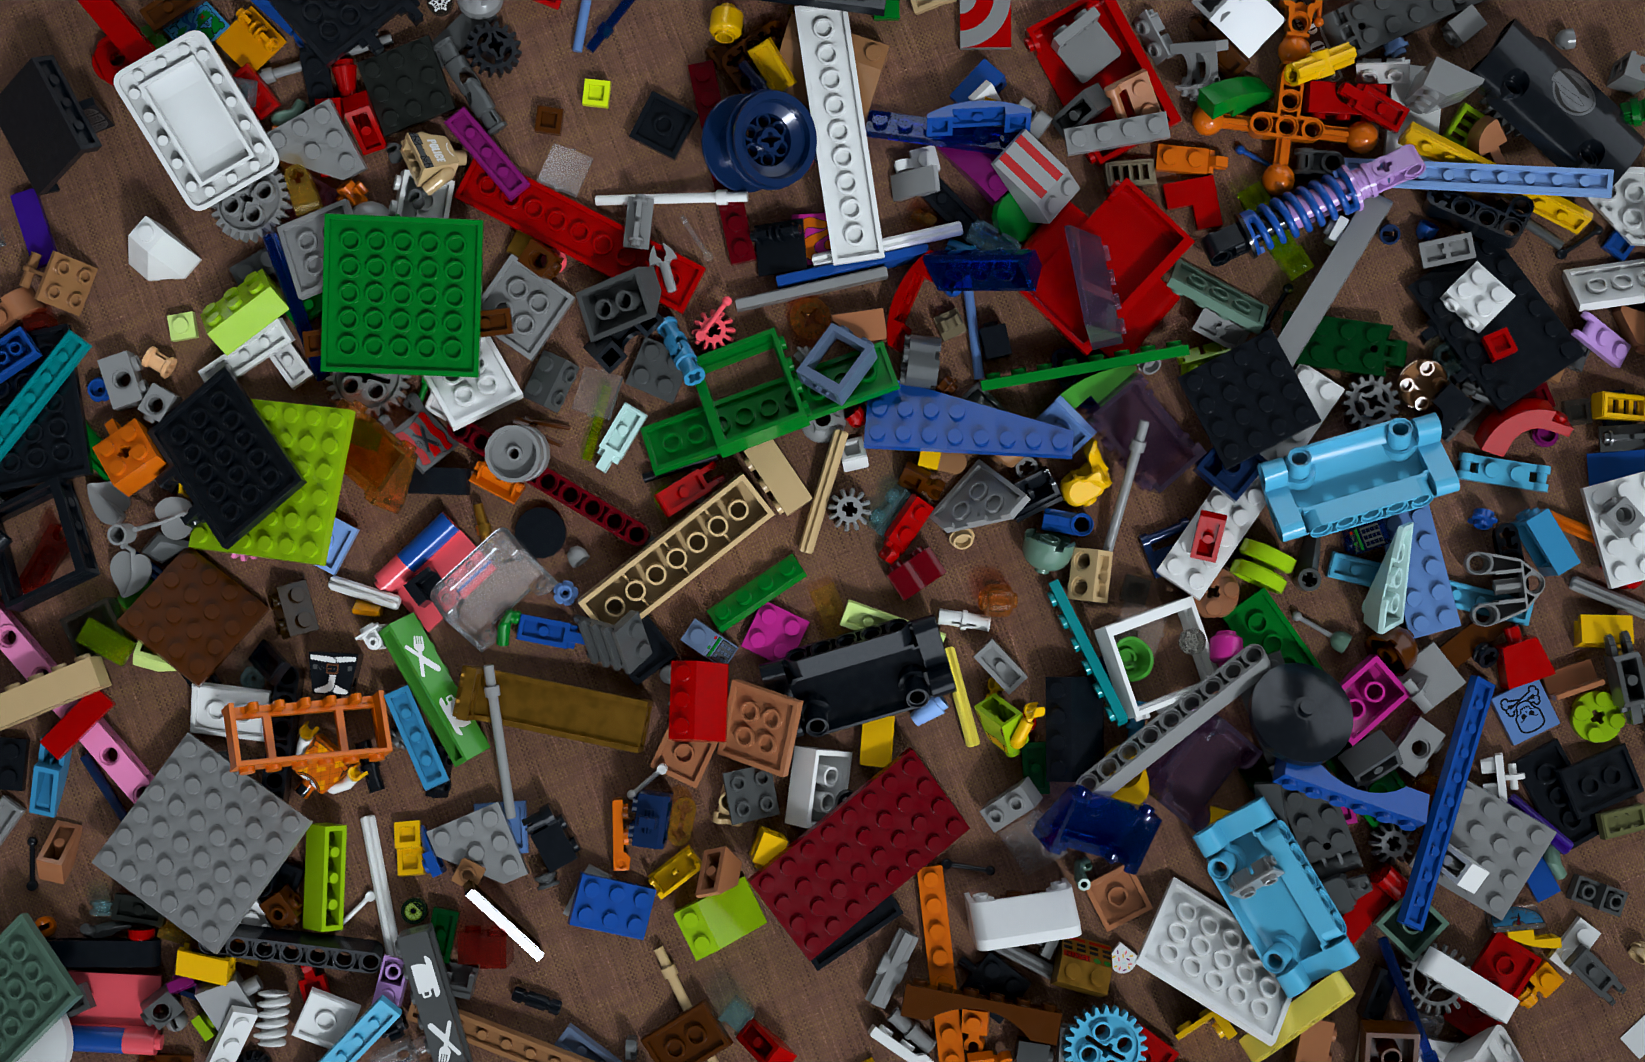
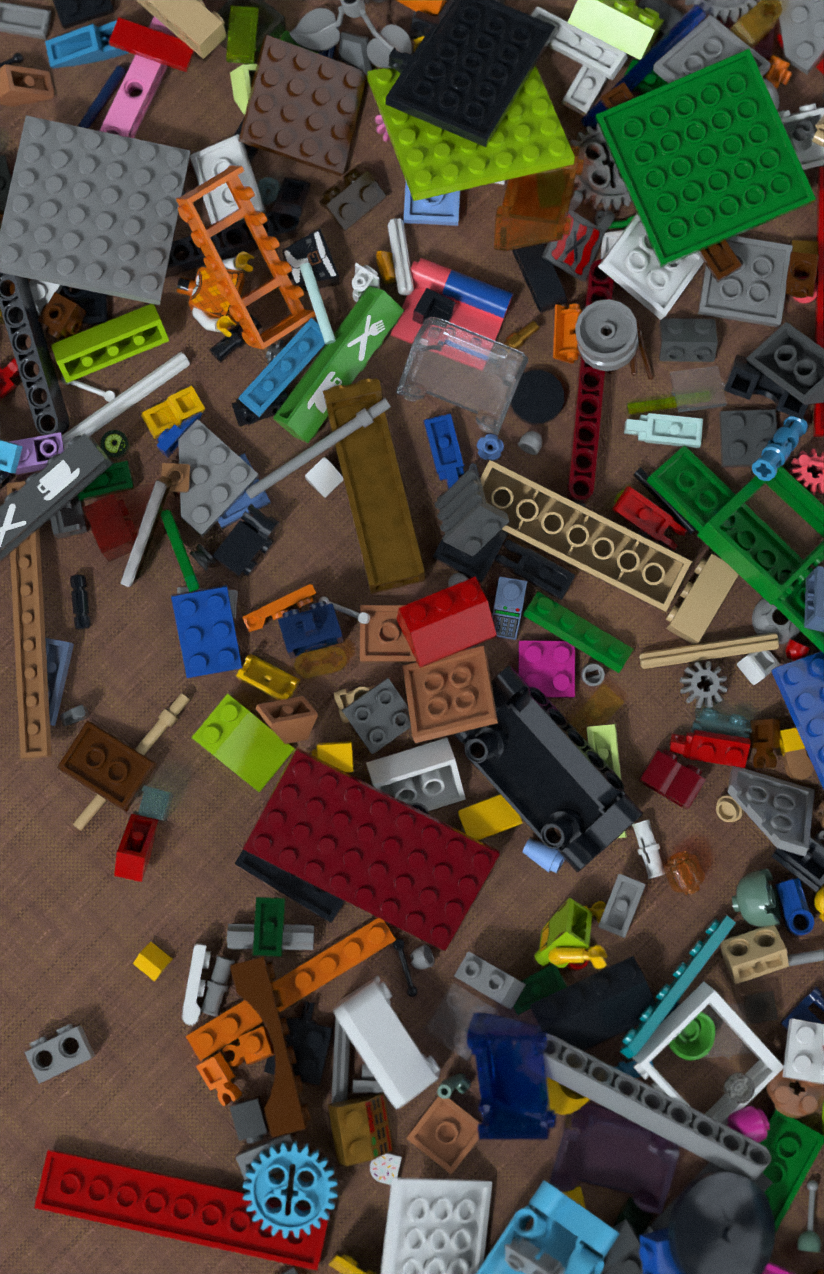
camera: 60 degrees right, 5 degrees down
(372, 684) = (317, 303): none -> light aqua bar
(504, 626) = (431, 403): green arm -> none
(526, 745) = (324, 477): none -> white slope
(533, 899) = (179, 550): none -> green tile
(689, 601) = (538, 570): none -> black hinge
(803, 598) = (592, 680): none -> light grey hinge
(883, 968) = (269, 926): none -> dark green plate
(962, 702) = (566, 885): light yellow axle -> none
(966, 849) = (422, 957): none -> light grey hinge

